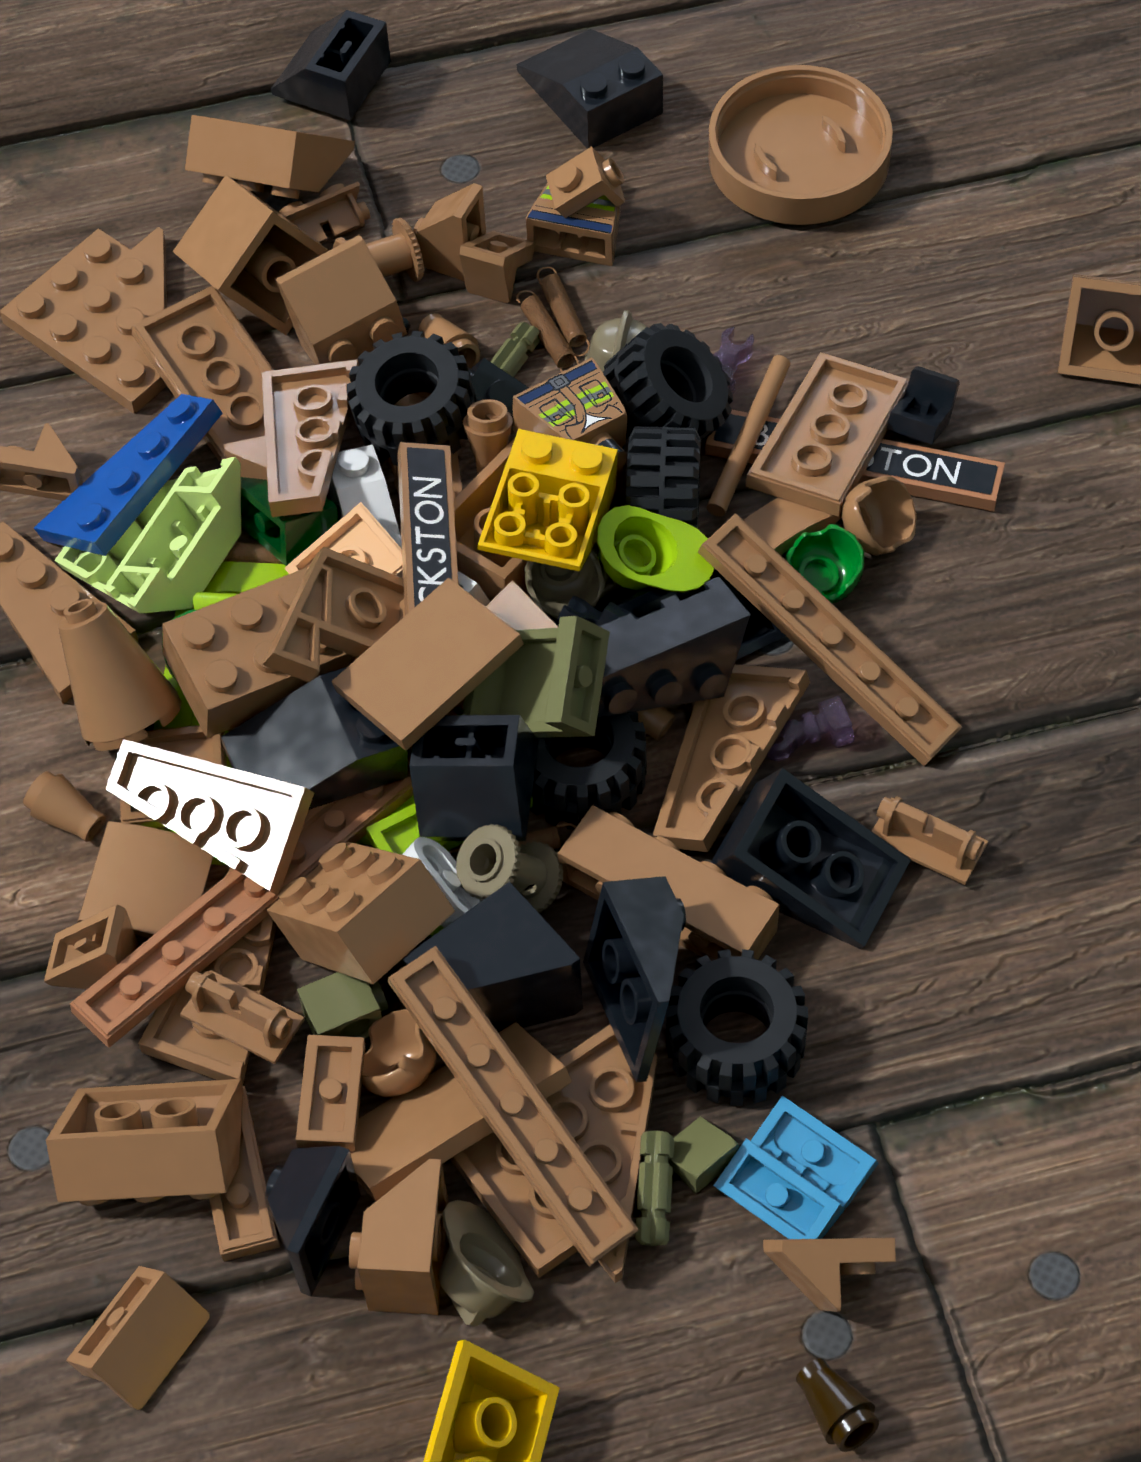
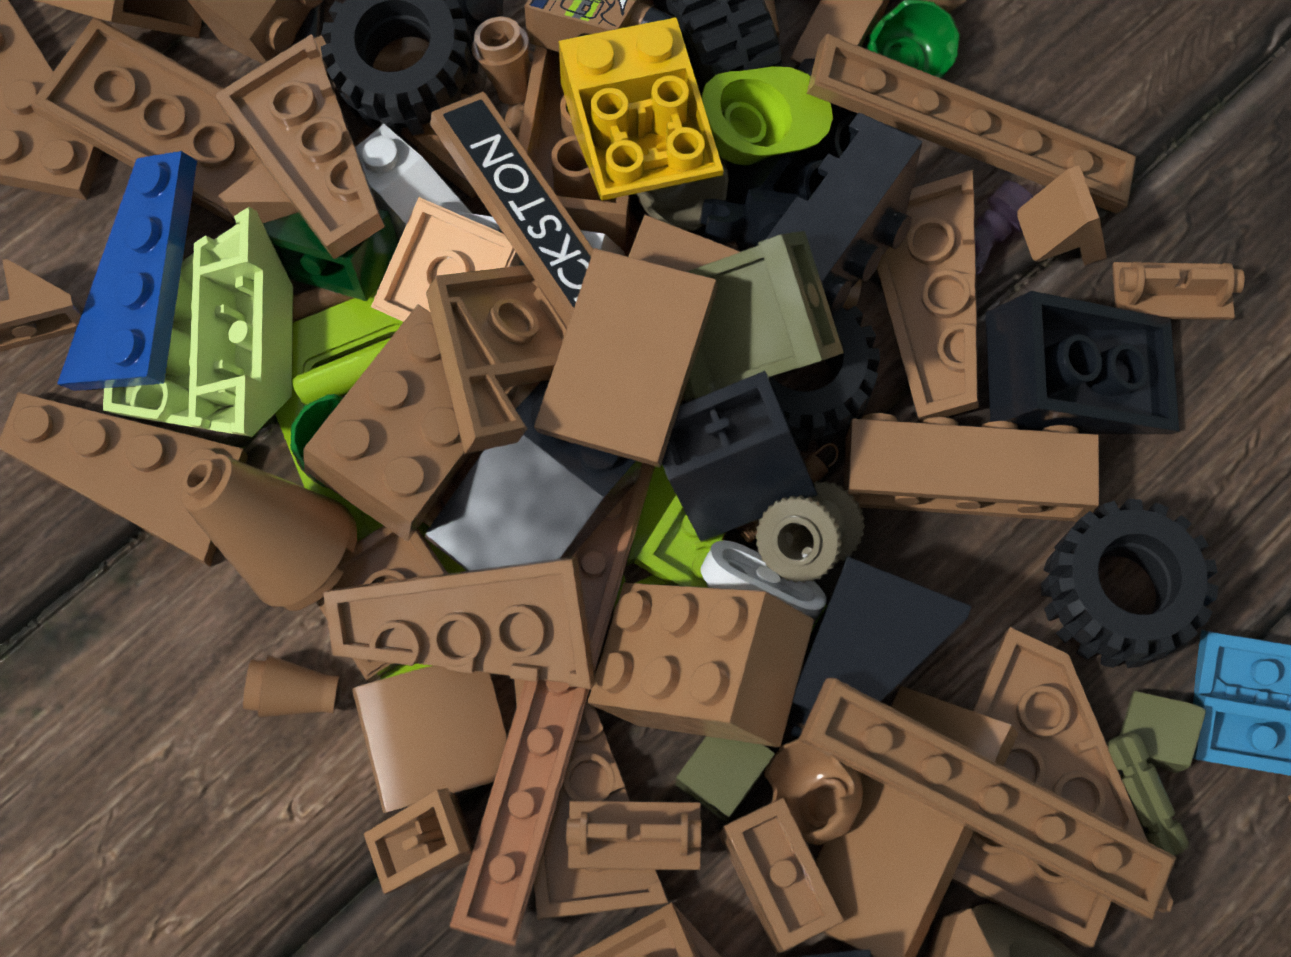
camera: 30 degrees left, 15 degrees up
(634, 962) = (1025, 582): black slope -> none
(864, 738) = (1063, 220): none -> medium nougat slope

